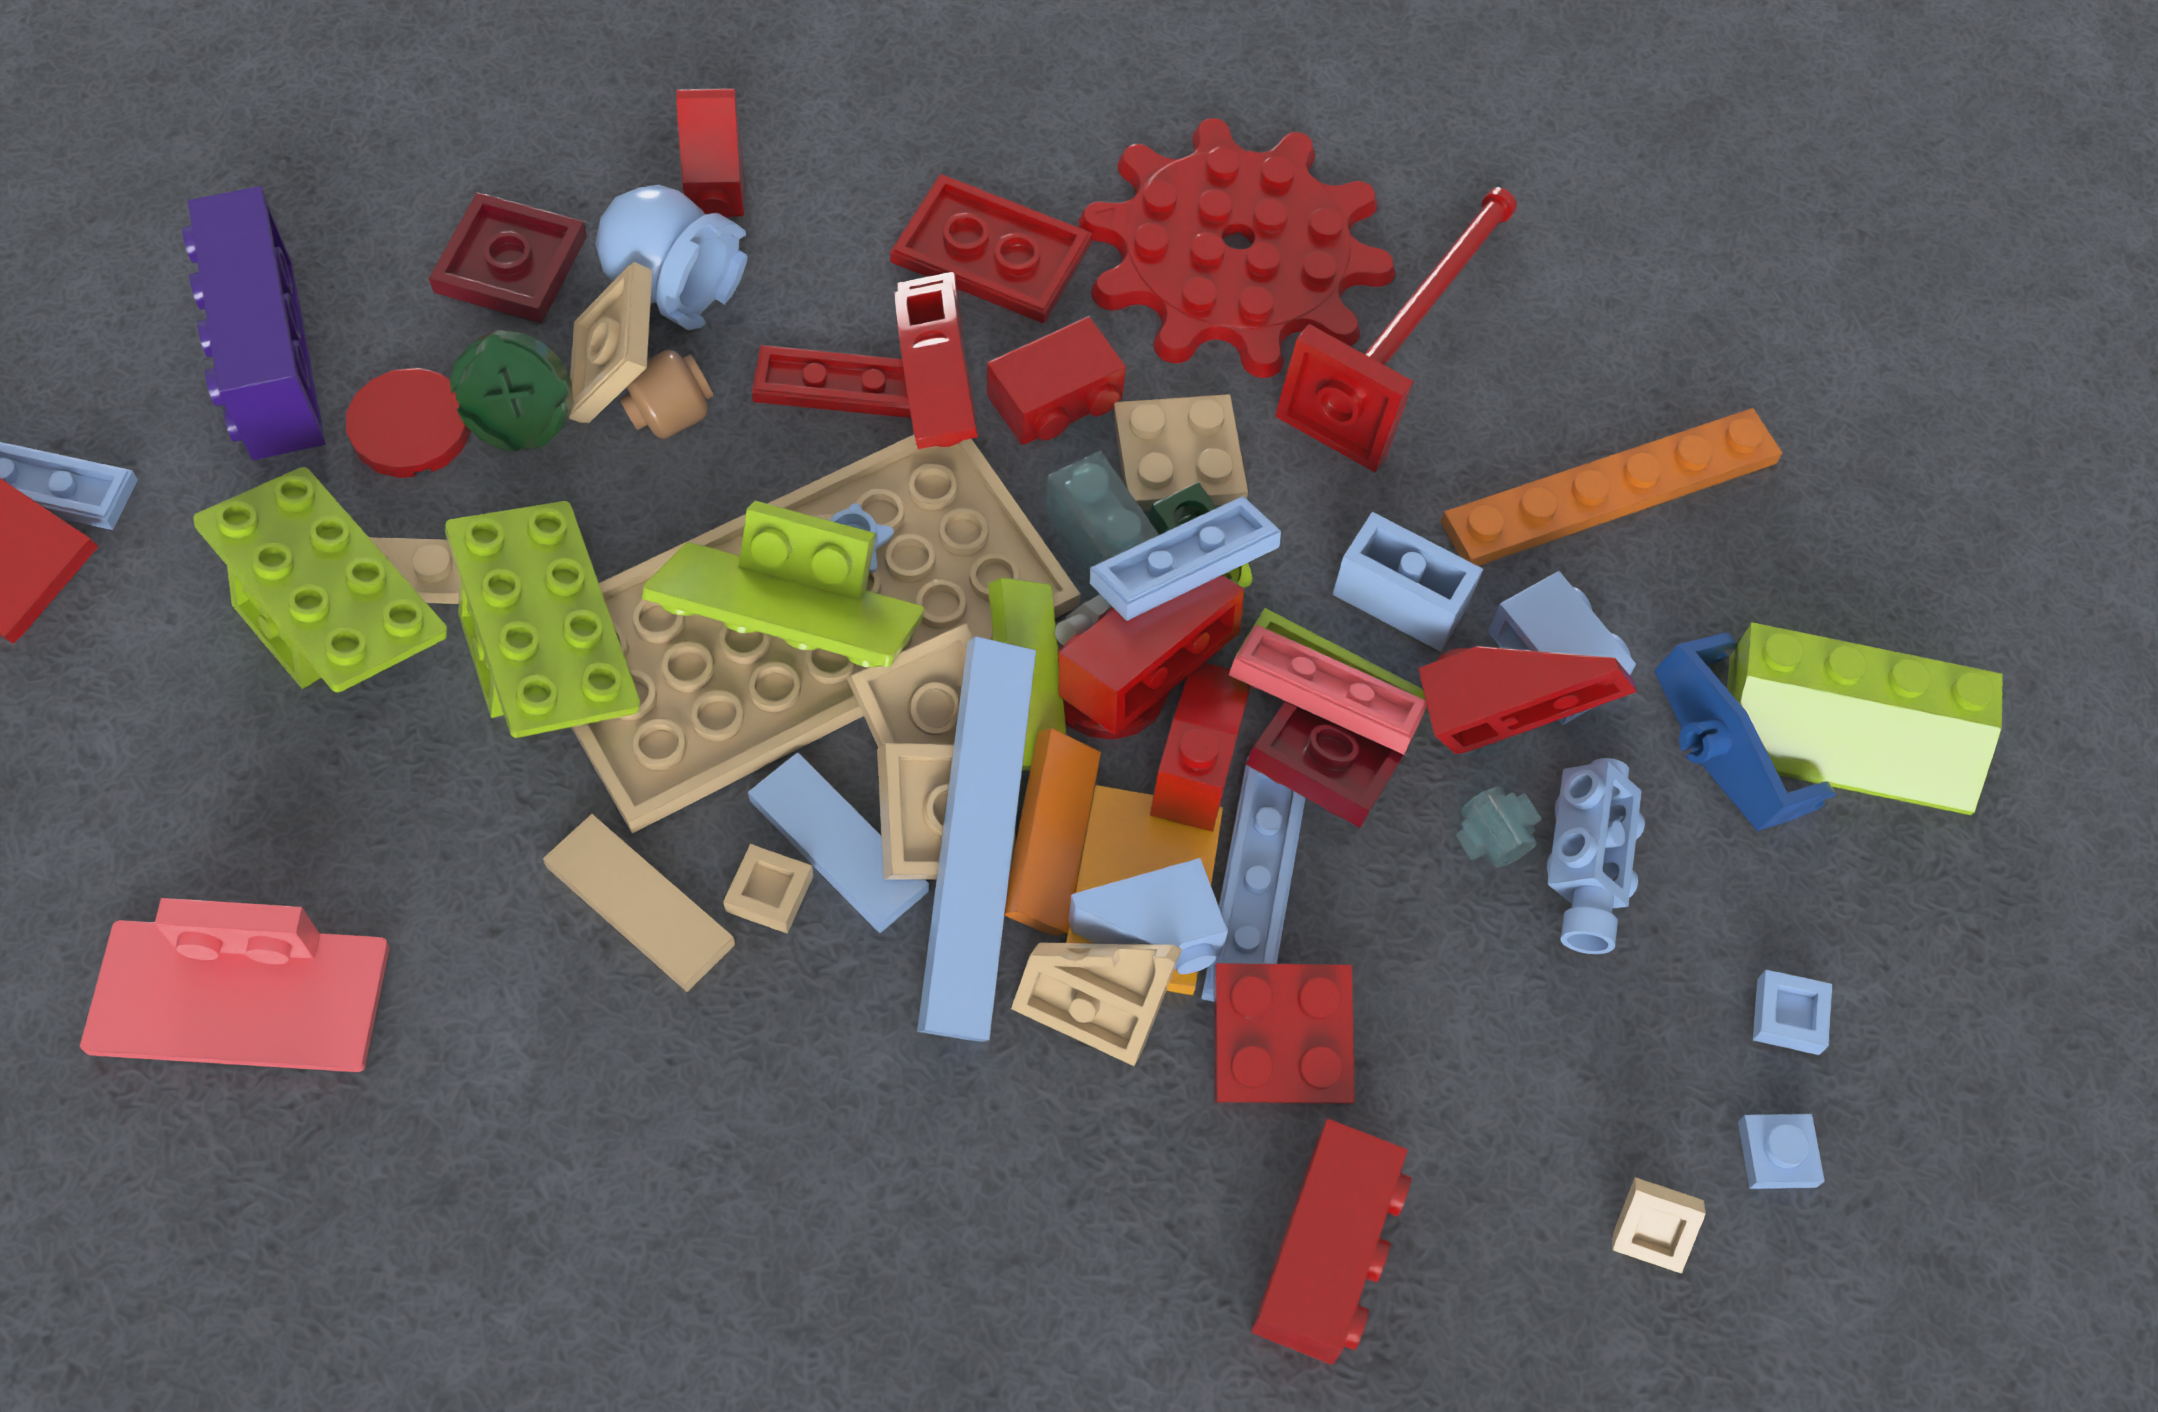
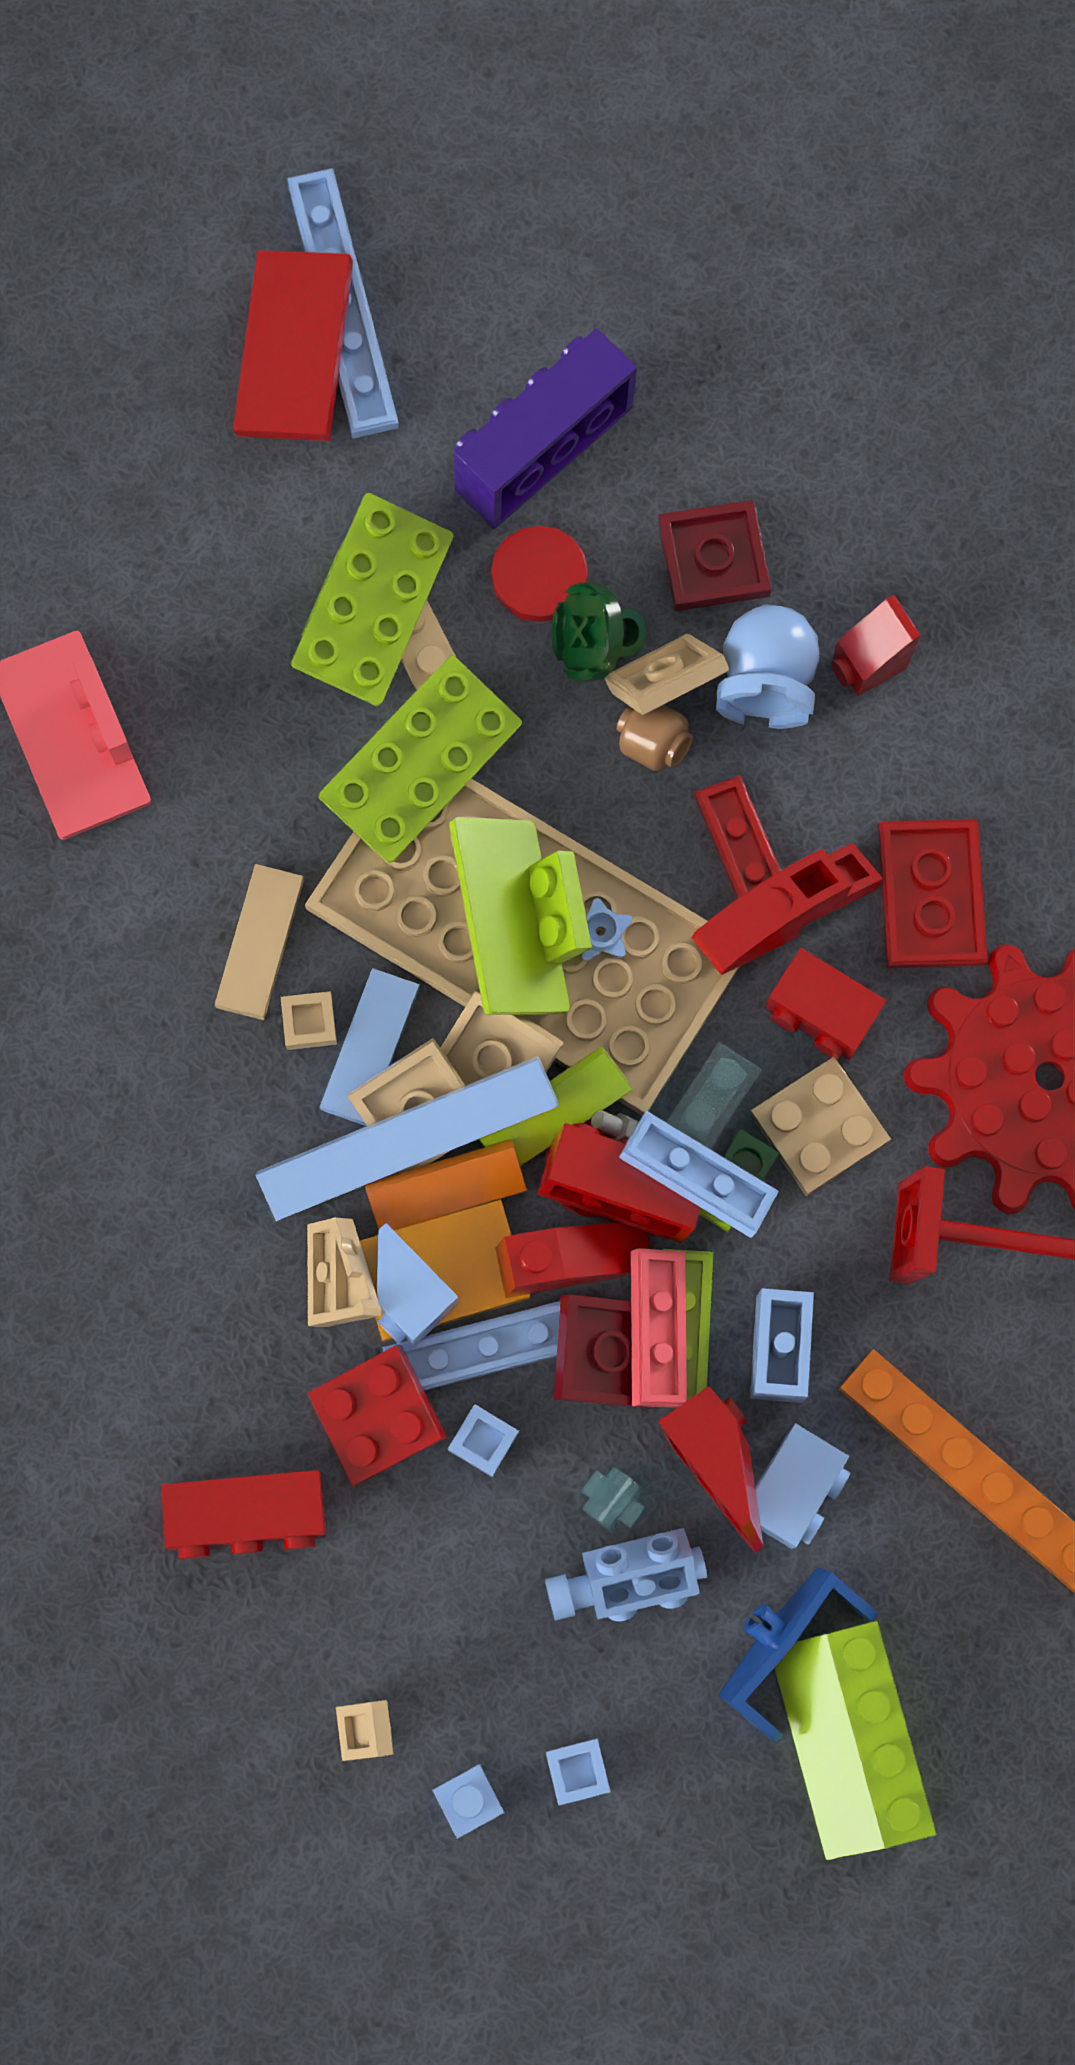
camera: 65 degrees right, 15 degrees up
(1366, 933) = (483, 1440): none -> light blue plate

